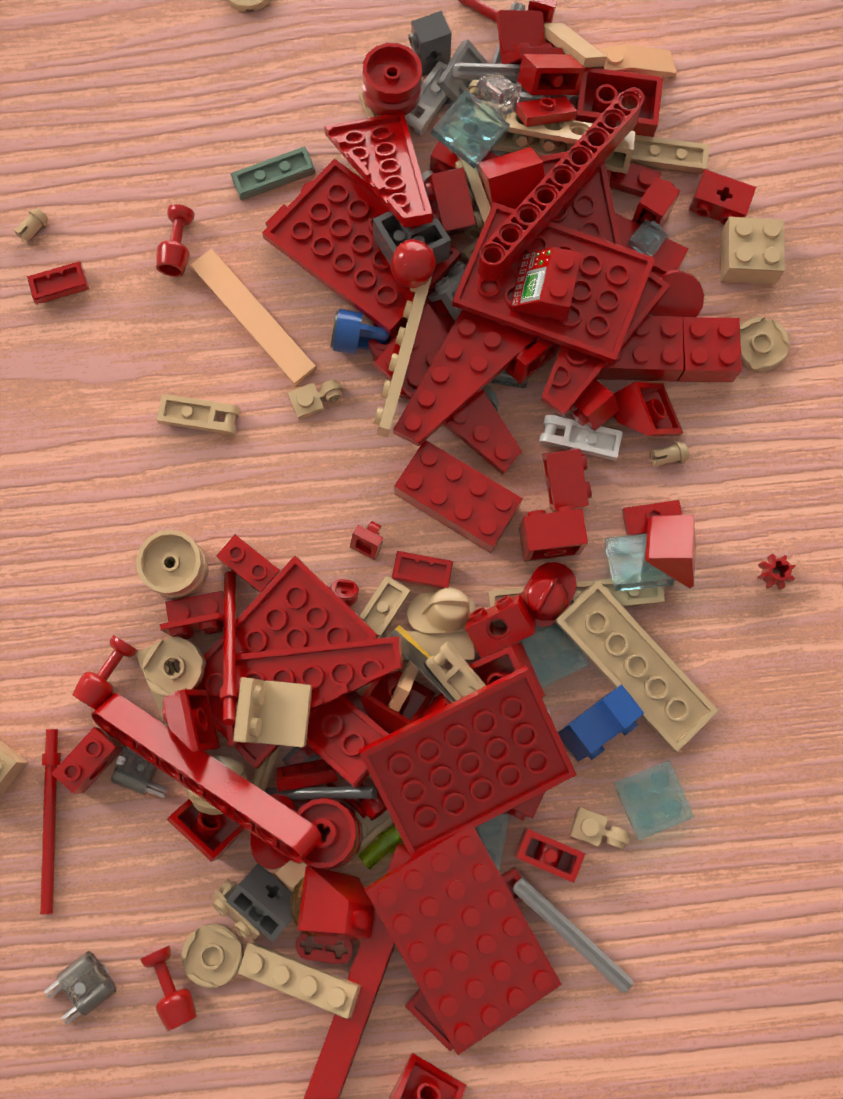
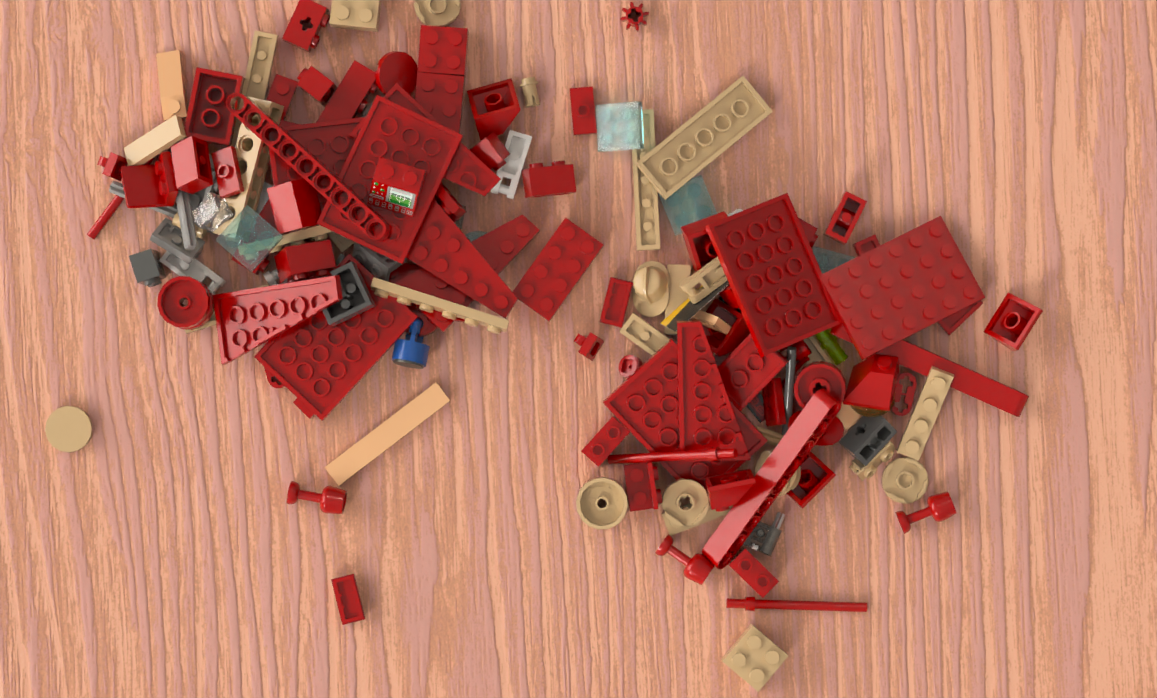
camera: 80 degrees left, 10 degrees up
(31, 224) = (292, 622): tan pin -> none
(85, 984) = (920, 576): clear smoke piece -> none
(197, 414) = (473, 482): tan plate -> none
(272, 712) = (728, 420): tan bracket -> none
(273, 173) = (254, 412): sand green tile -> none
(307, 400) = (464, 390): tan plate -> none
(413, 263) = (372, 293): red hair -> none
(489, 637) = (676, 251): red brick -> none
(549, 592) = (642, 202): red piece -> none
(553, 534) = (596, 195): red brick -> none
(573, 935) = (905, 204): light grey axle -> none
(591, 827) = (826, 183): tan plate -> none
(600, 723) = (747, 170): blue brick -> none
(648, 238) = (346, 94): clear light blue tile -> none
(653, 800) = (808, 133): clear light blue plate -> none
(672, 546) = (612, 100): slope -> none

